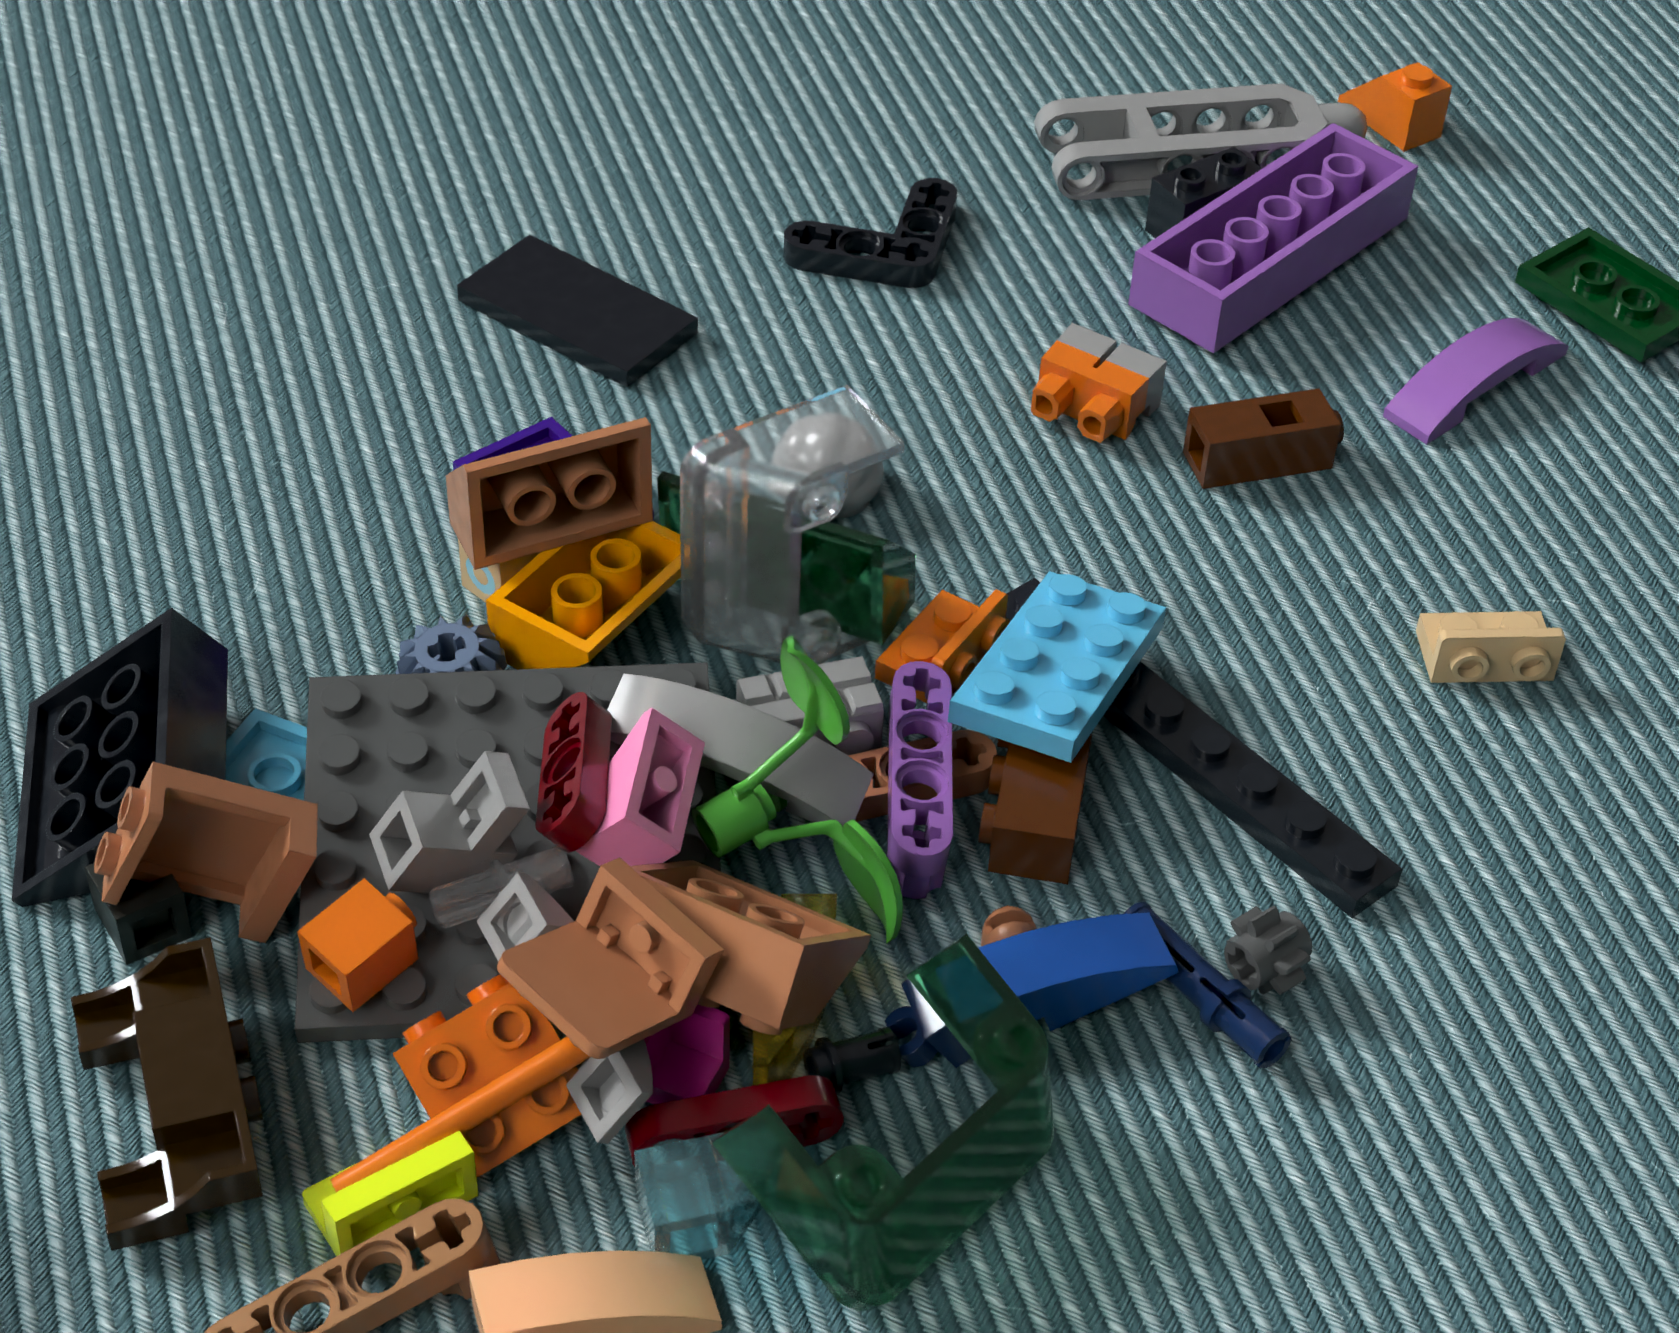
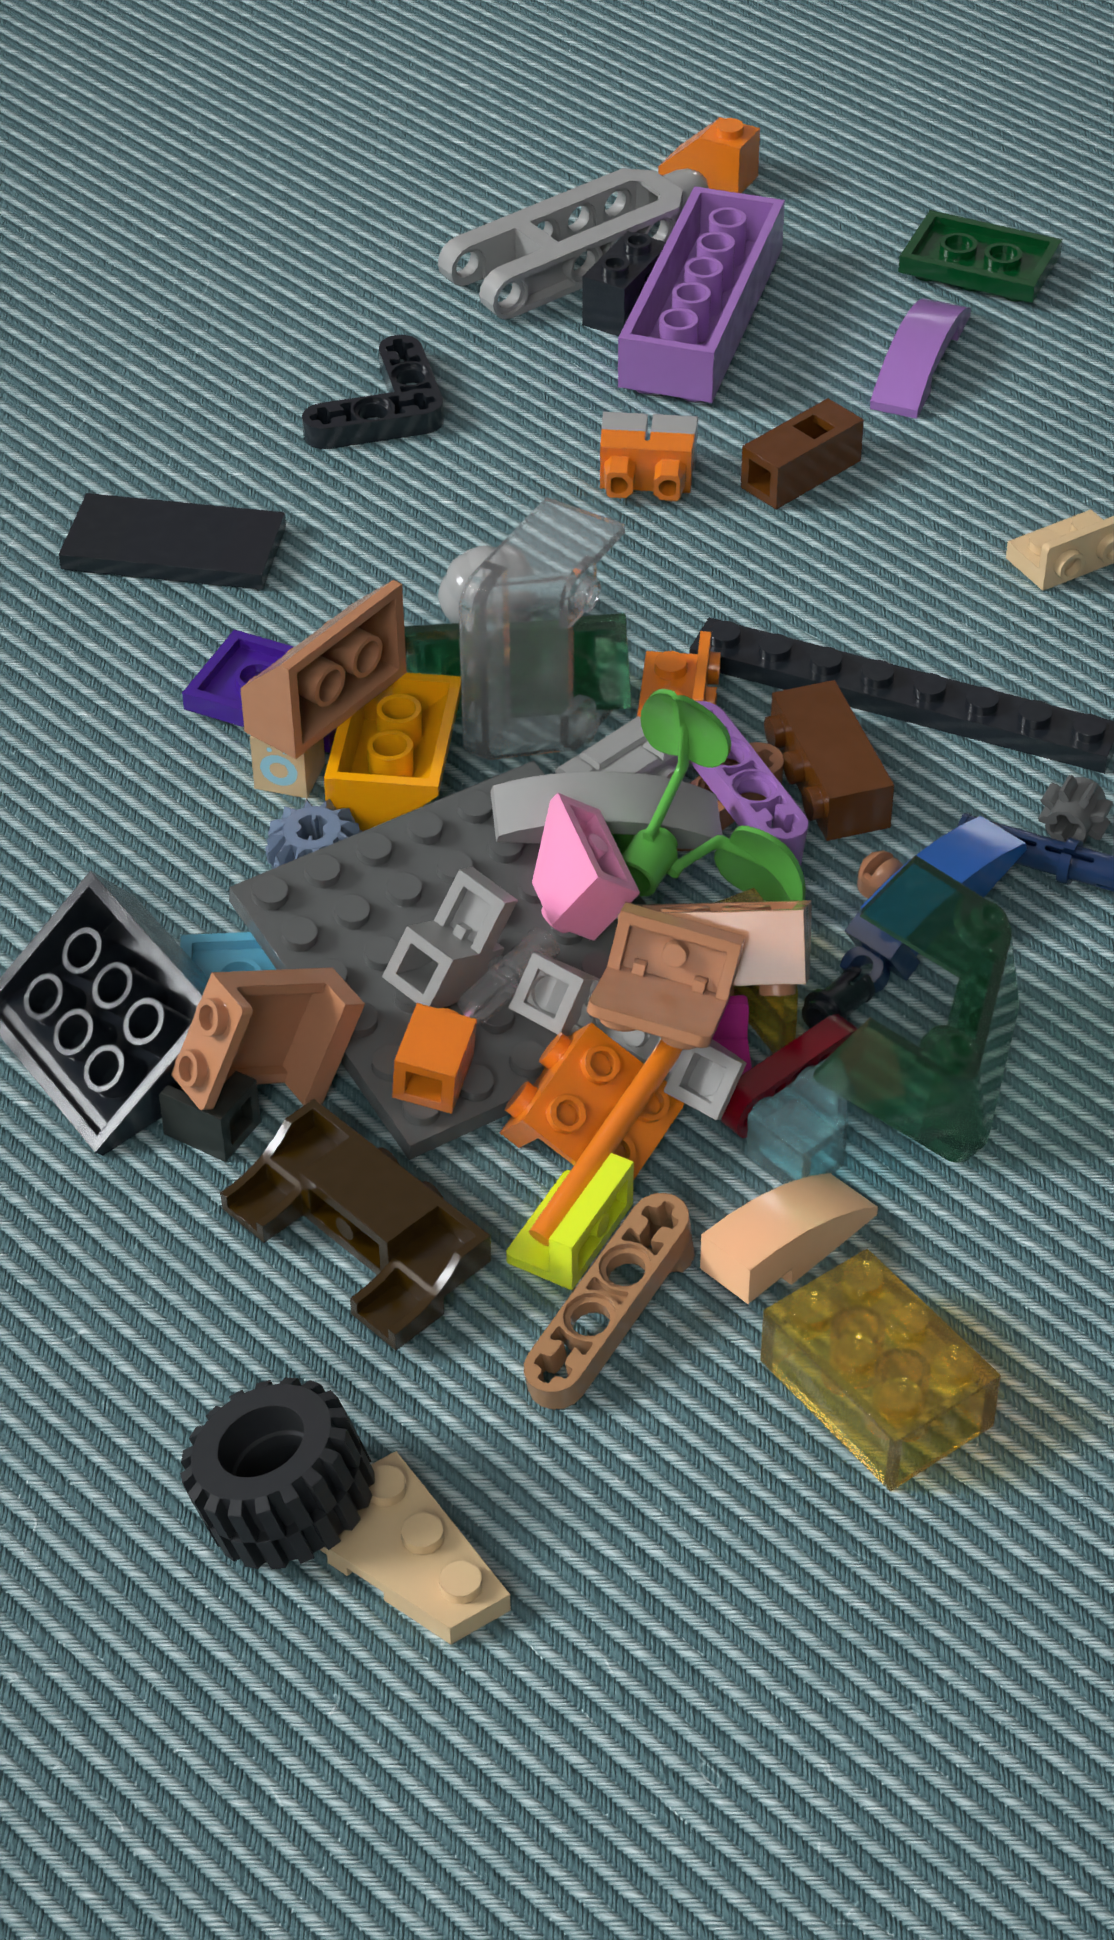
camera: 25 degrees left, 0 degrees up
(574, 772) = (532, 871): dark red beam -> none
(1057, 666) = (793, 667): medium azure plate -> none

